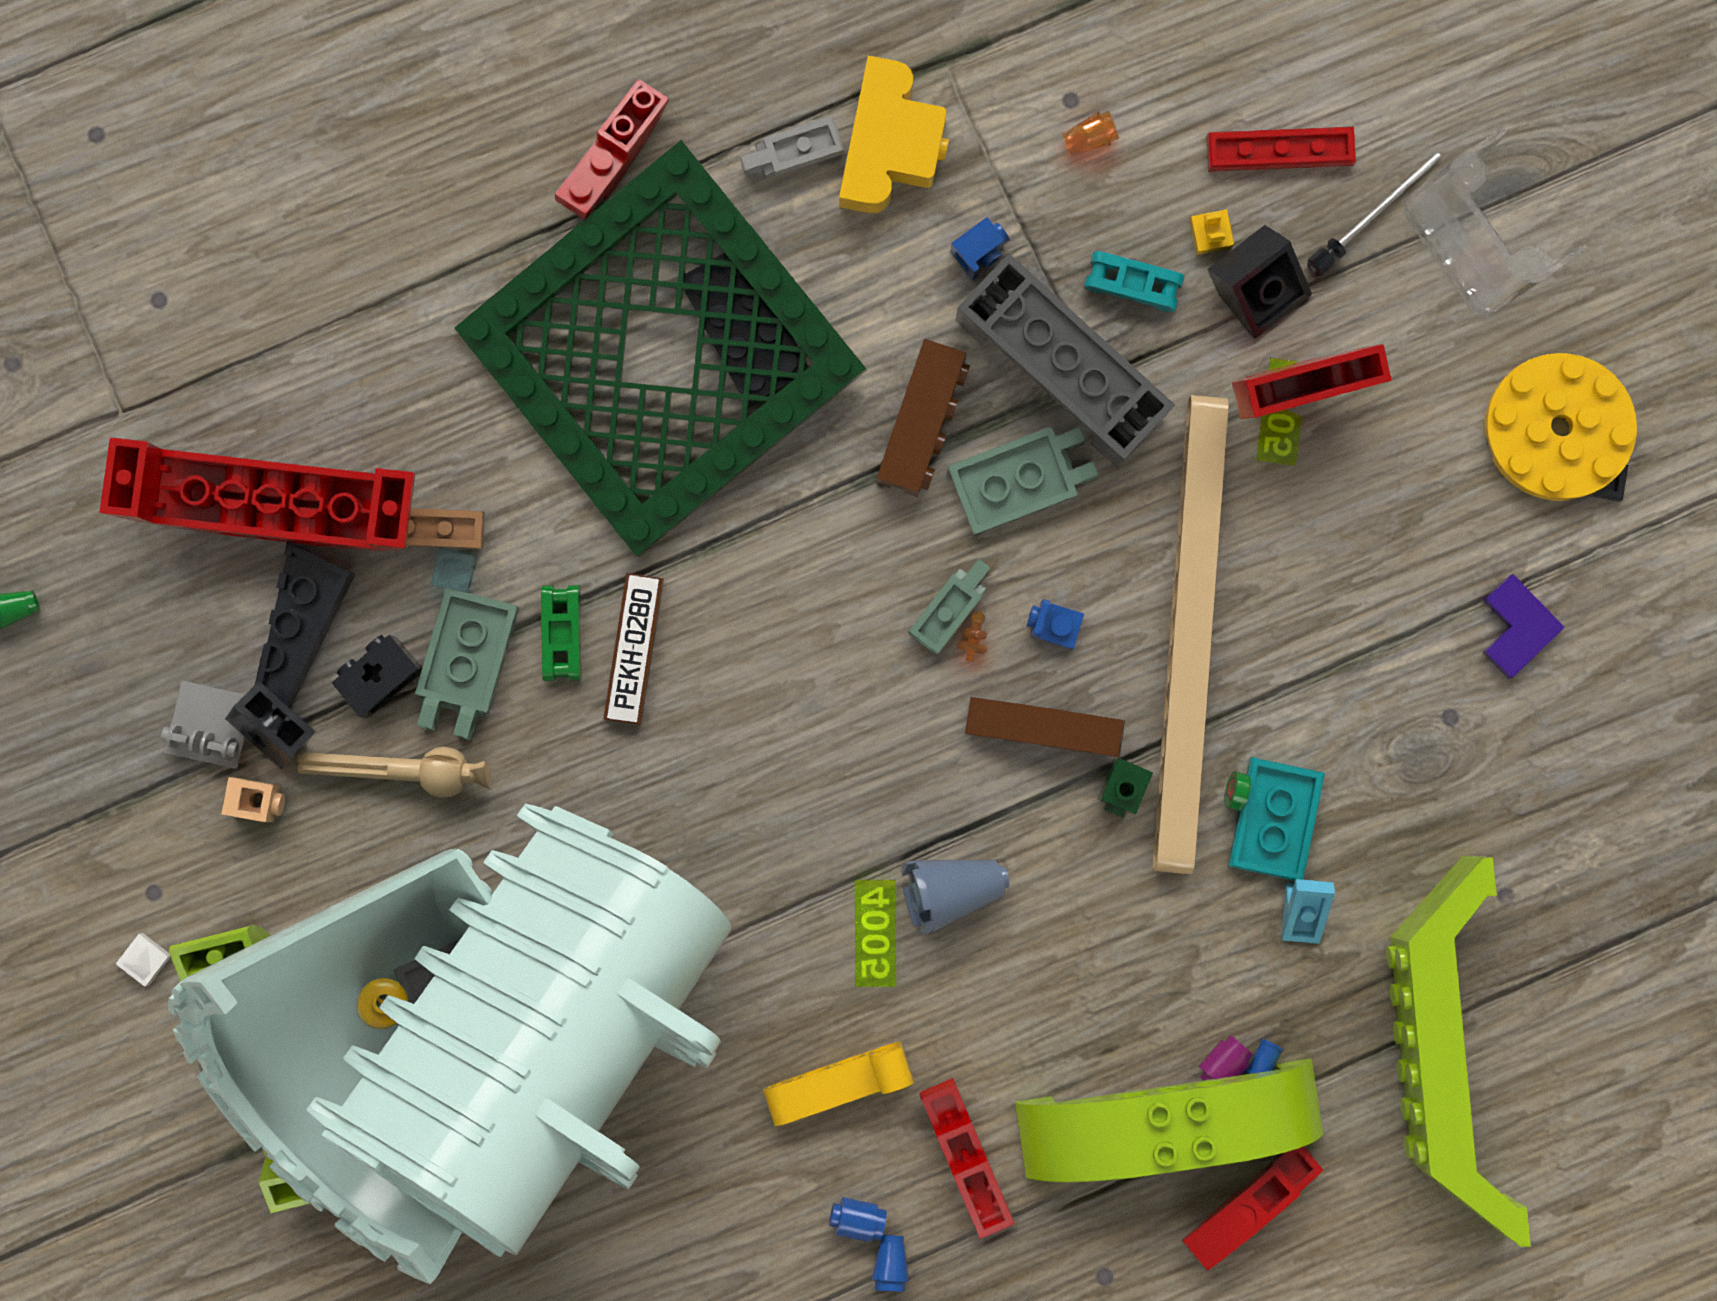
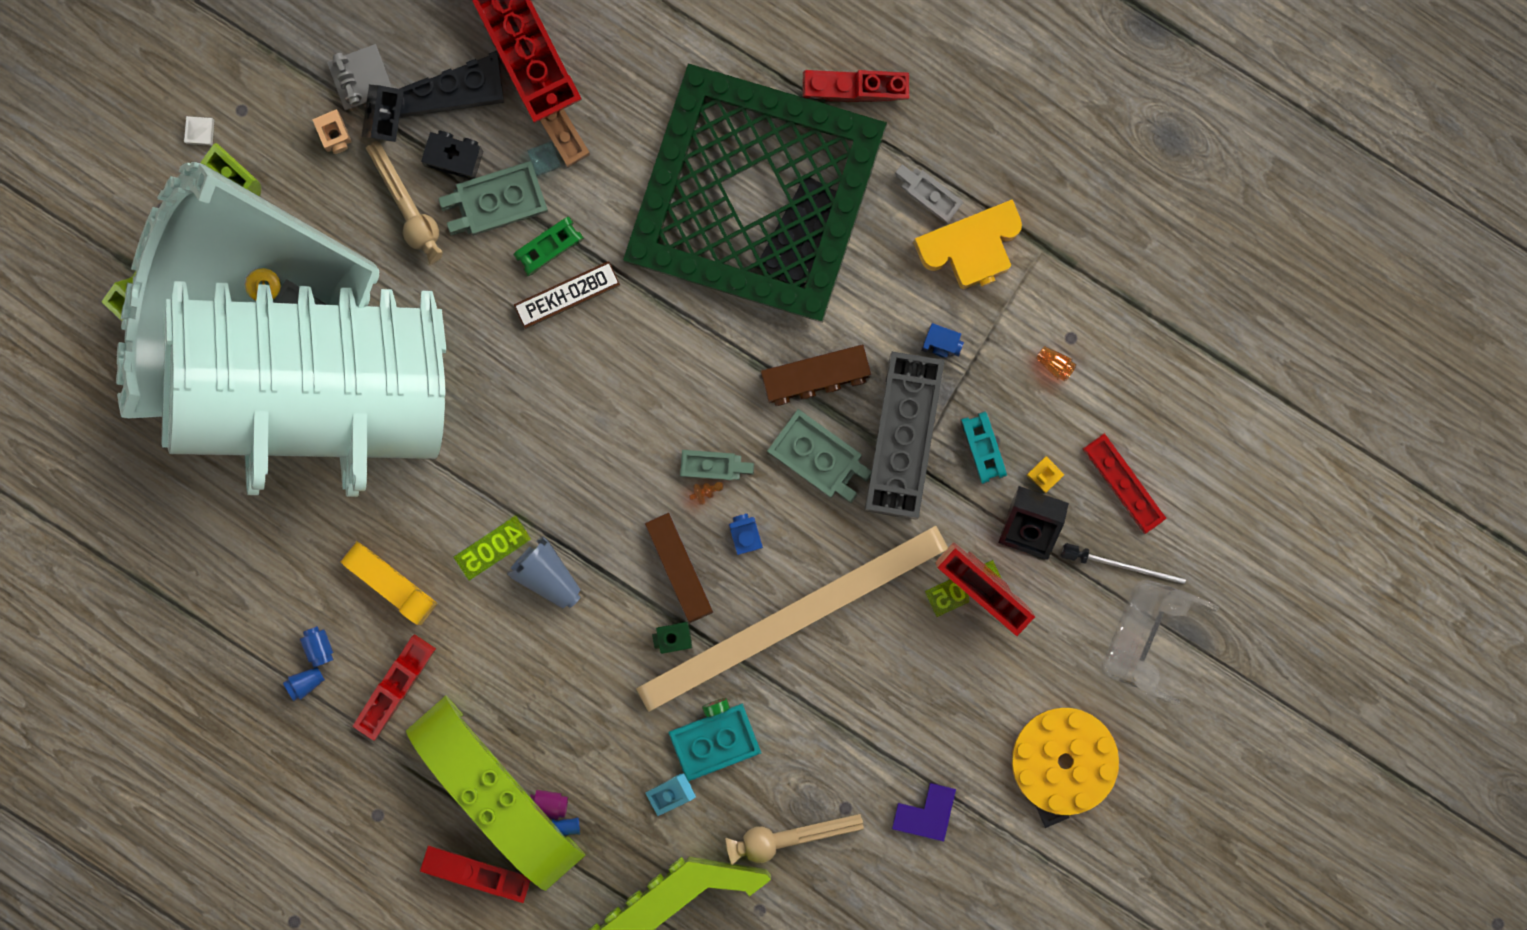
camera: 55 degrees right, 0 degrees up
(1434, 842) = (761, 844): none -> tan piece

